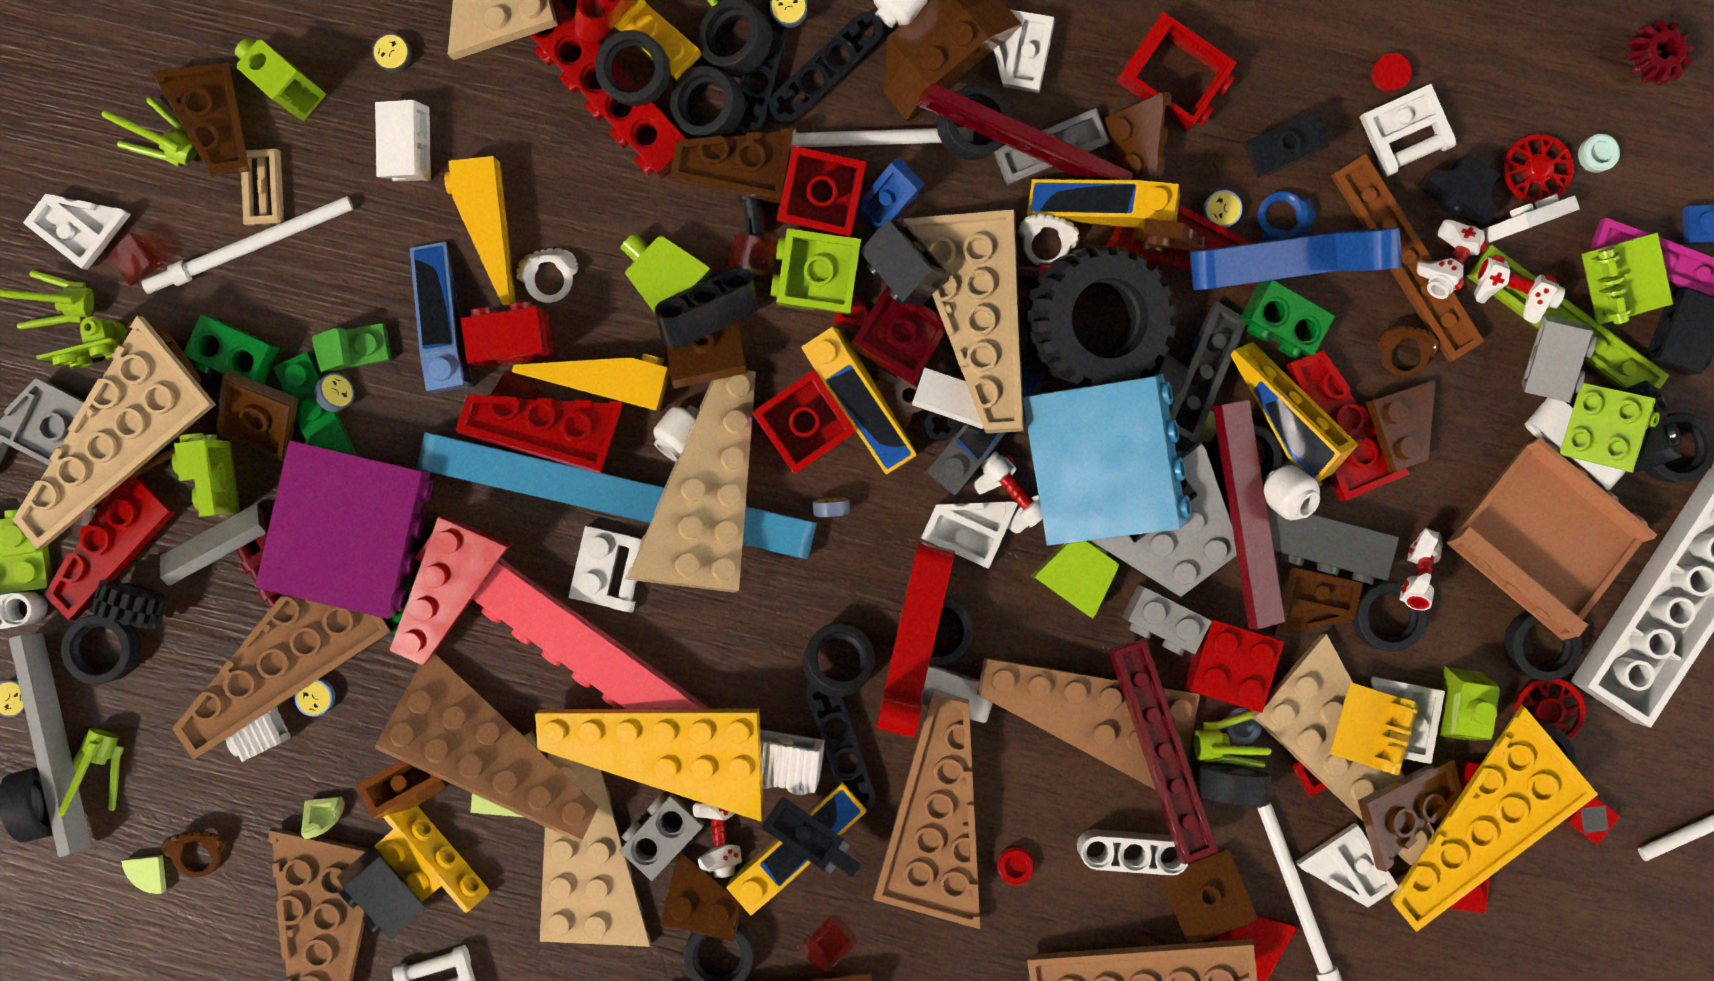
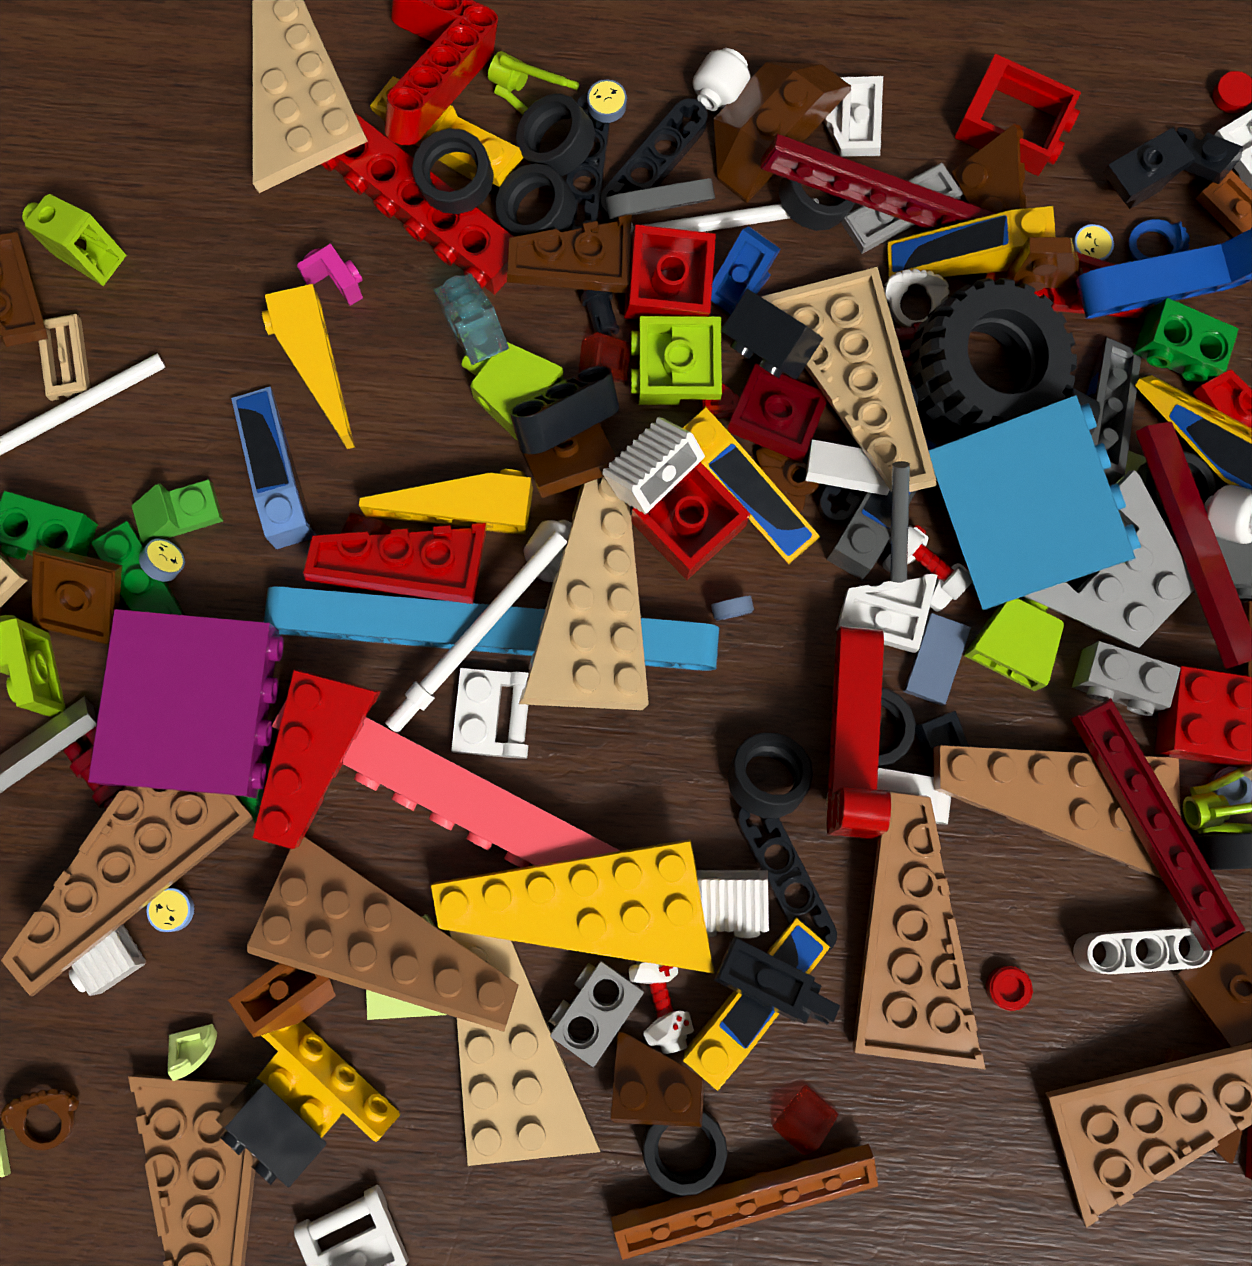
camera: 10 degrees left, 10 degrees down
(392, 53) = (192, 203): light yellow tile -> none
(402, 140) = (212, 286): white hinge -> none
(507, 336) = (348, 467): red brick -> none
(522, 145) = (325, 262): none -> dark pink bracket
(548, 547) = (421, 693): none -> white bar
(564, 261) = (365, 399): white piece -> none
(632, 210) = (471, 318): none -> clear light blue brick
(774, 376) = (653, 464): none -> white brick
(824, 113) = (660, 198): none -> dark grey beam
(986, 458) = (899, 521): none -> dark grey bar
(995, 644) = (938, 731): none -> black plate
(1005, 576) = (937, 659): none -> sand blue tile
(1349, 139) = (1213, 155): none -> black plate

